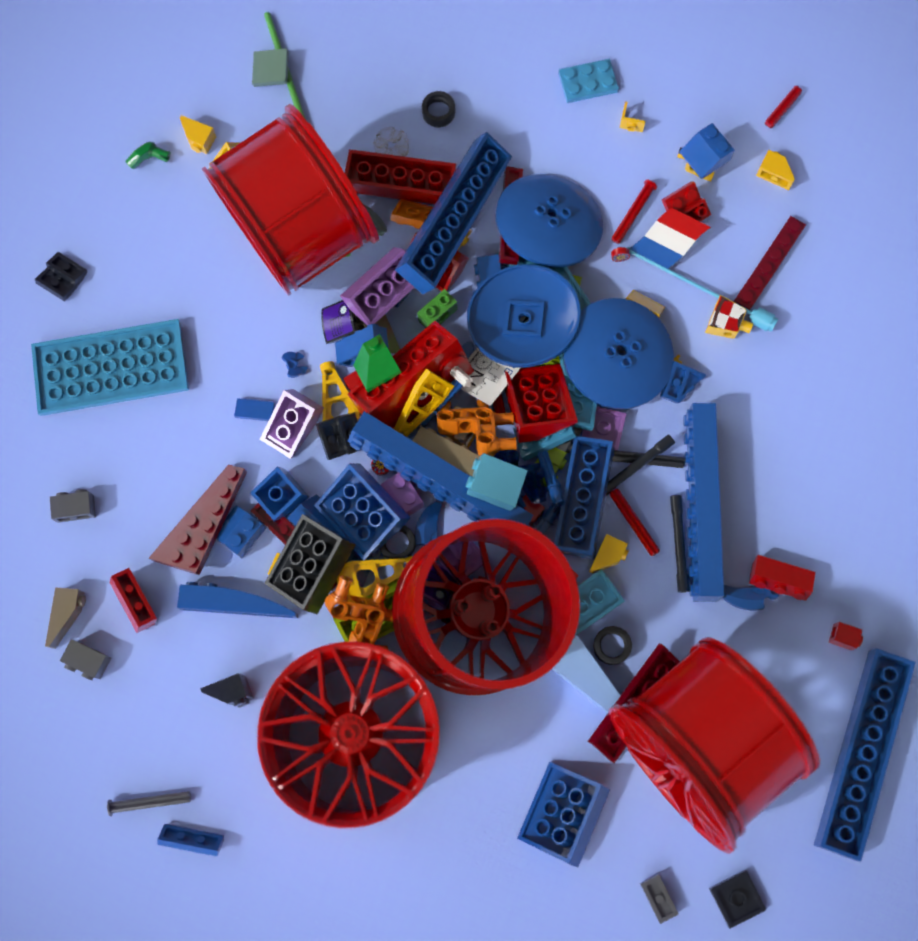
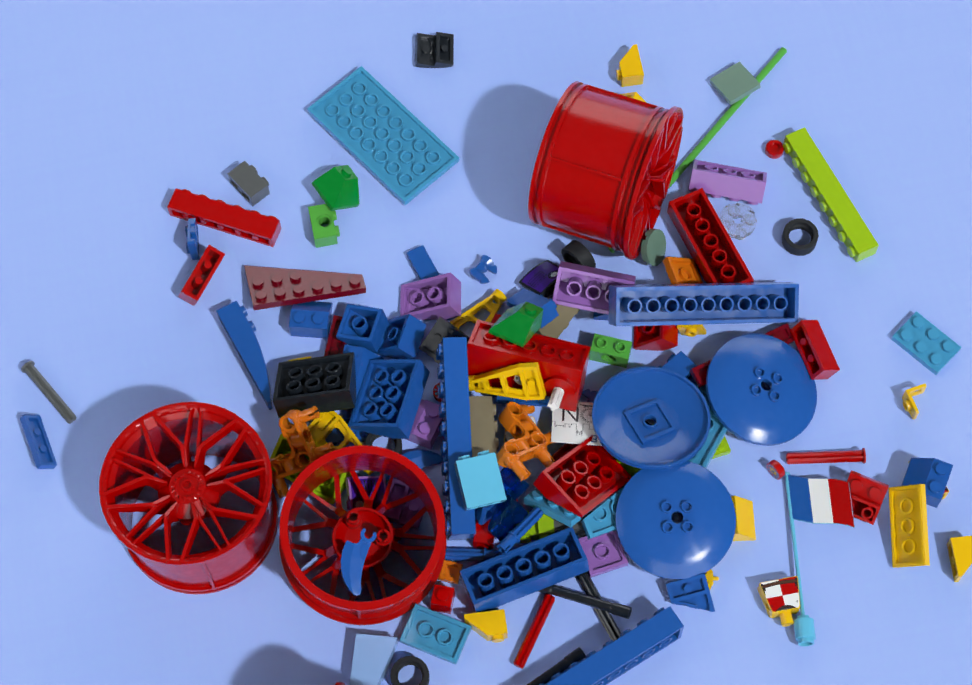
camera: 55 degrees right, 10 degrees down
(65, 609) = (162, 232): dark tan slope -> none
(85, 659) = (132, 273): dark grey brick -> none
(89, 548) = (225, 217): none -> red brick
(97, 591) = (192, 244): none -> blue wing
(135, 433) = (338, 188): none -> green slope
(145, 152) = (586, 40): green arm -> none
(167, 475) = (323, 235): none -> bright green brick
(231, 690) = (174, 389): black slope -> none
(311, 467) = (402, 337): none -> blue slope
(338, 281) = (578, 254): none -> black tyre
(348, 78) = (774, 149): none -> red tile
(355, 127) = (728, 181): none -> medium lavender slope
(417, 63) = (830, 195): none -> lime brick
(523, 629) = (353, 560): none -> blue piece
(542, 160) = (814, 349): none -> red brick
(734, 188) = (909, 526): none -> yellow tile
(769, 263) = (866, 606): dark red plate -> none

